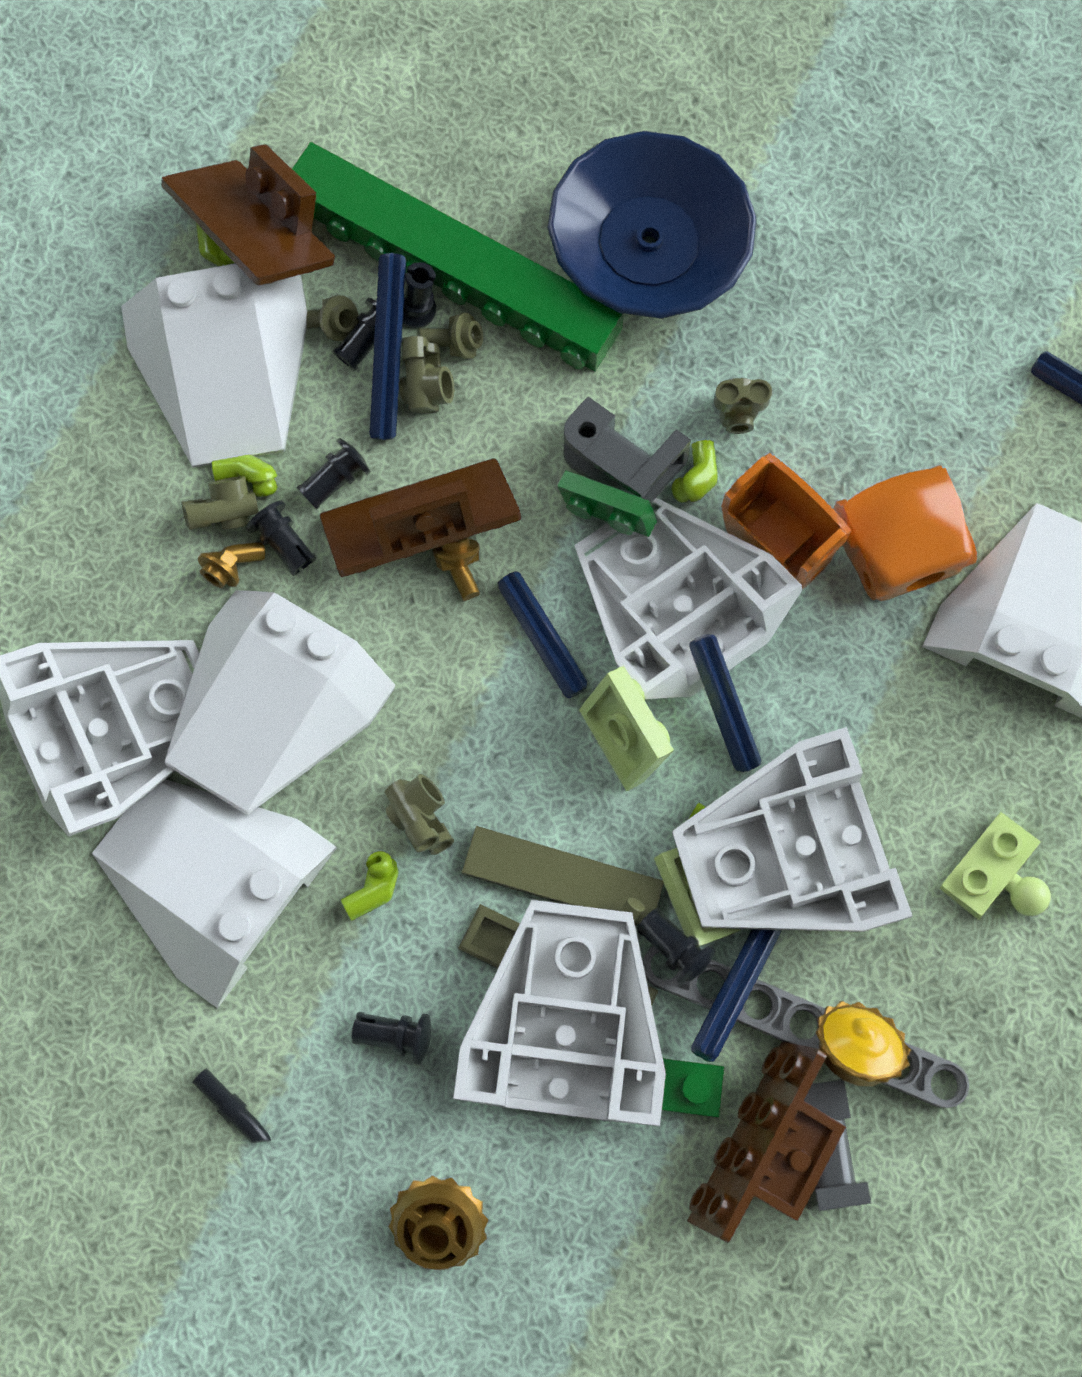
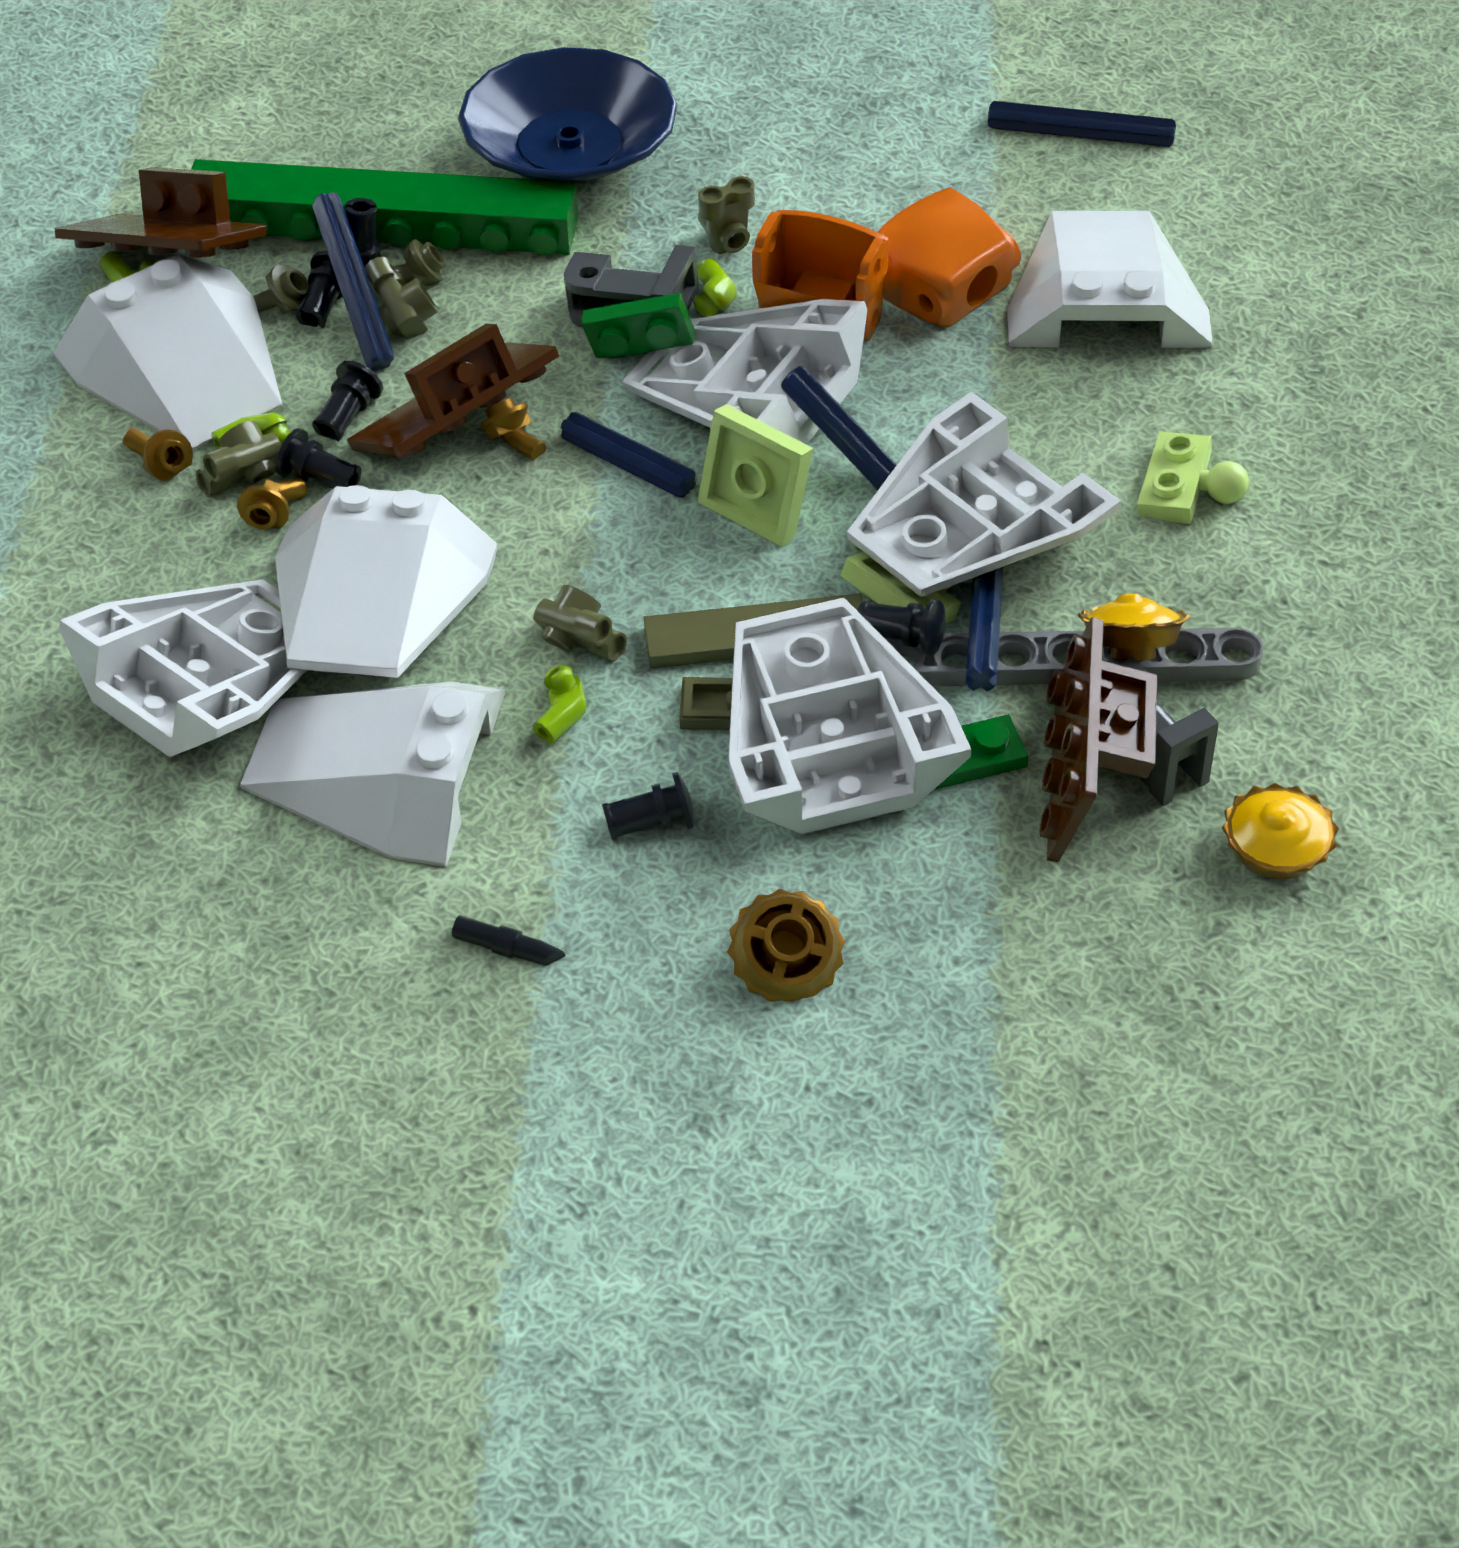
camera: 20 degrees left, 25 degrees down
(162, 464) = (161, 451): none -> pearl gold plate
(881, 1299) = (1280, 831): none -> yellow piece

